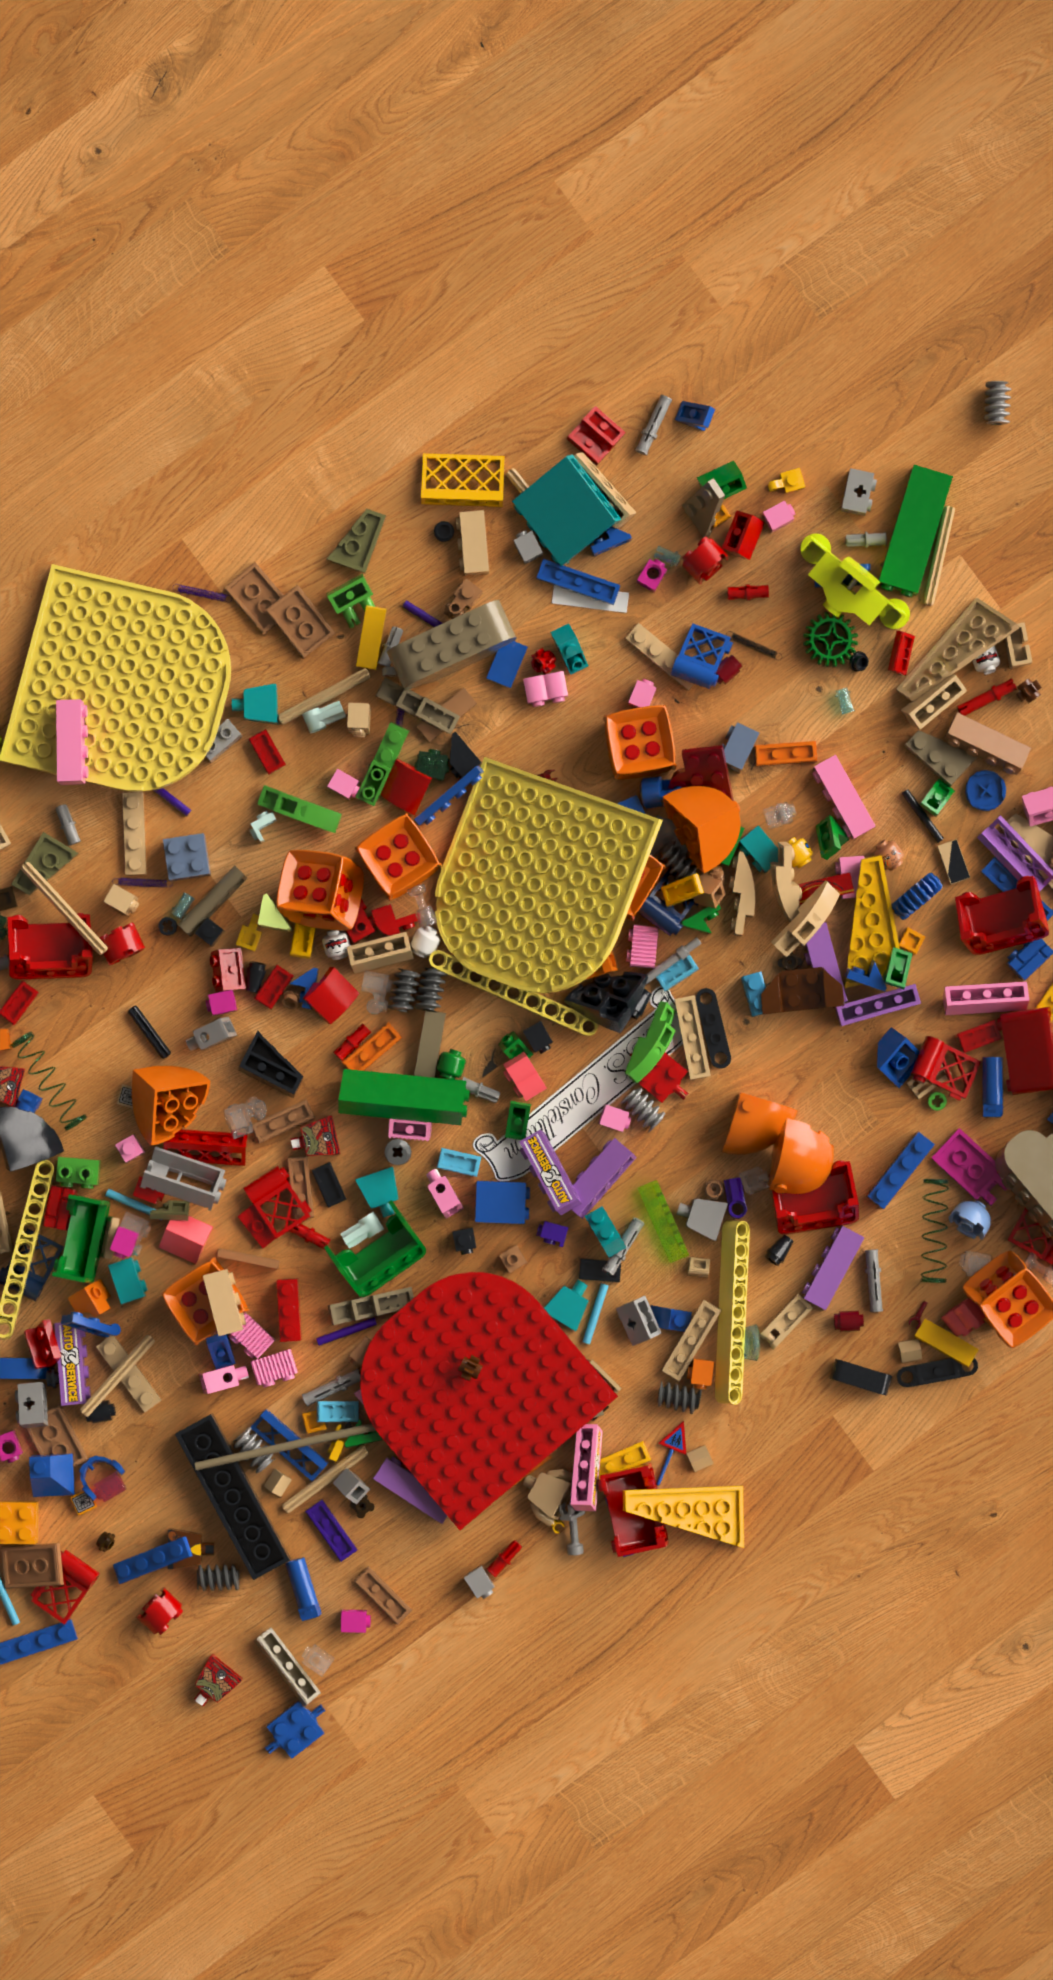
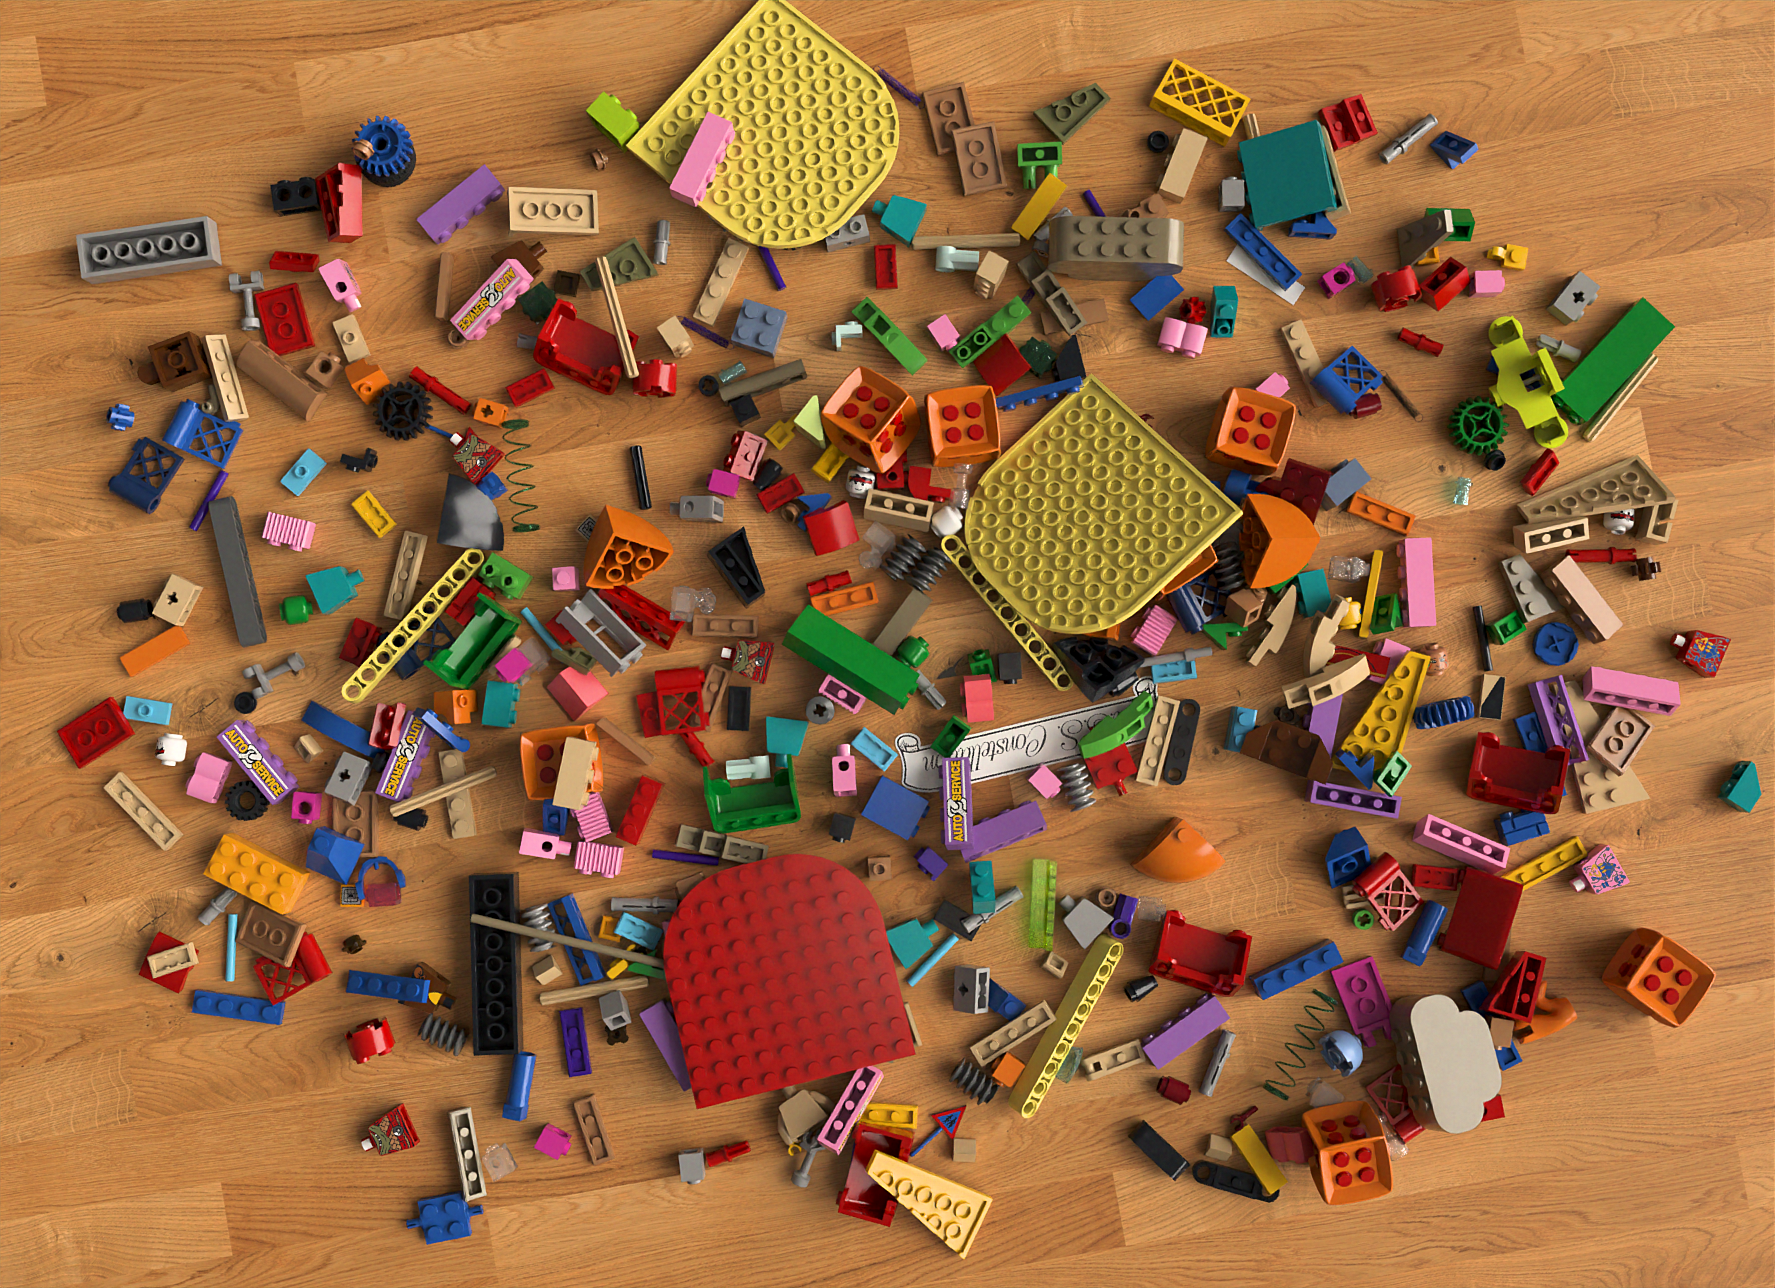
camera: 25 degrees right, 0 degrees up
(470, 1367) = (785, 956): reddish brown gear -> none
(682, 890) = (1220, 594): yellow plate -> none
(800, 1159) = (1205, 910): orange brick -> none
(809, 825) = (1370, 594): none -> yellow tile
(911, 941) = (1414, 752): light orange tile -> none
(996, 402) = (1749, 278): light grey piece -> none

